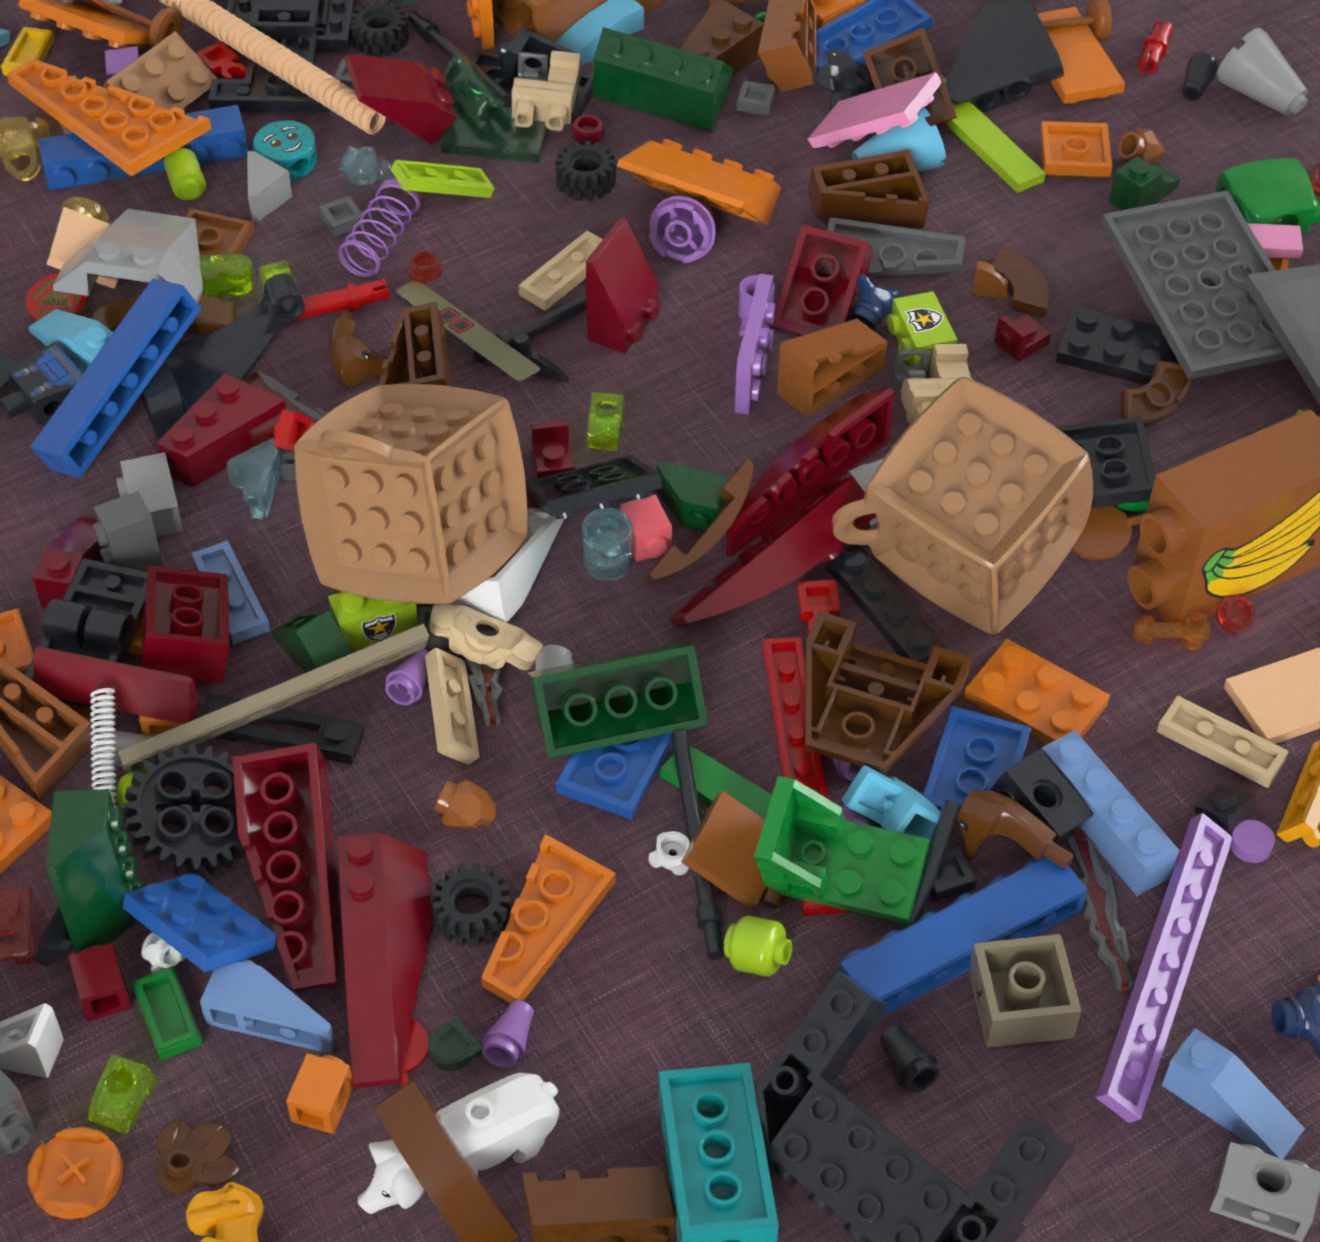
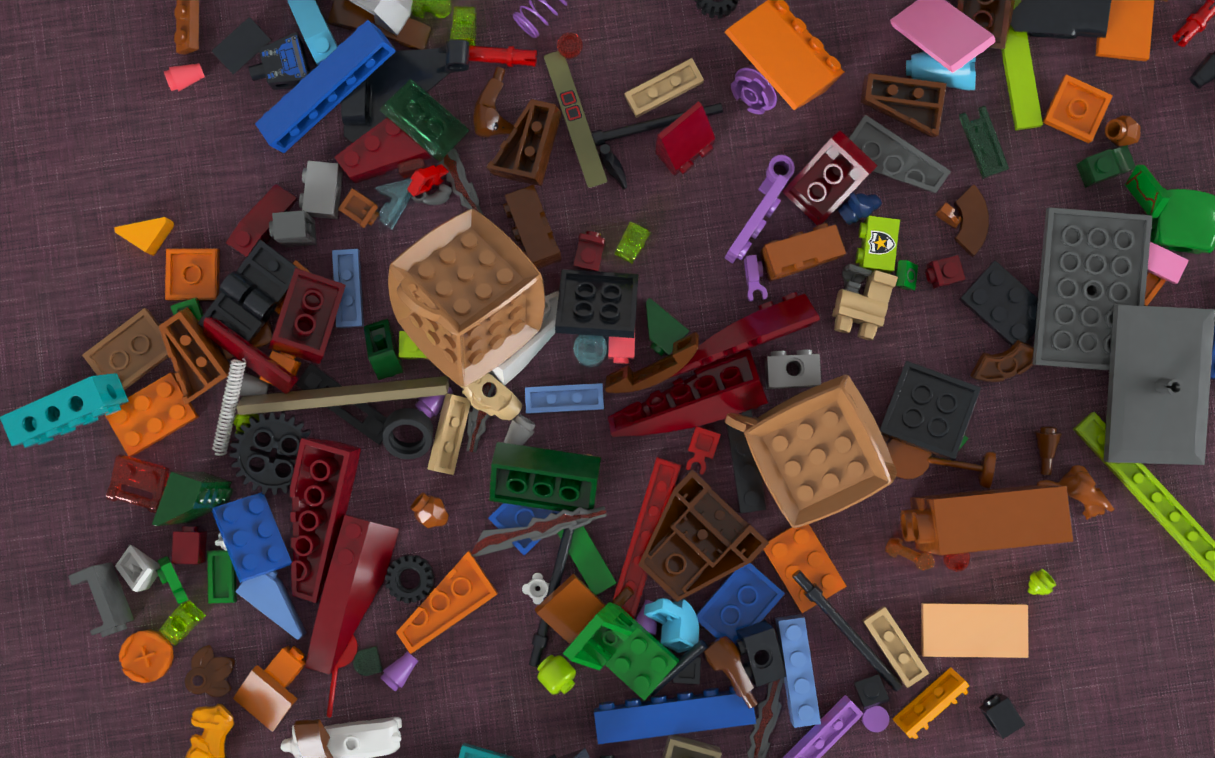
camera: 25 degrees right, 35 degrees up
(84, 1028) = (168, 574): none -> green plate
(212, 500) = (359, 208): none -> dark orange bracket
(267, 375) = (424, 120): none -> clear green tile
(304, 1143) = (265, 698): none -> dark orange tile
(414, 695) = (413, 417): none -> black tyre
(598, 614) = (564, 398): none -> medium blue plate
(636, 765) = (538, 528): none -> dark grey sword
(779, 407) = (753, 271): none -> medium lavender plate
(977, 349) = (906, 275): none -> green tile
(989, 208) = (984, 144): none -> clear green hinge
(1070, 705) = (815, 595): none -> black bar
(1206, 179) = (1147, 191): none -> green tile

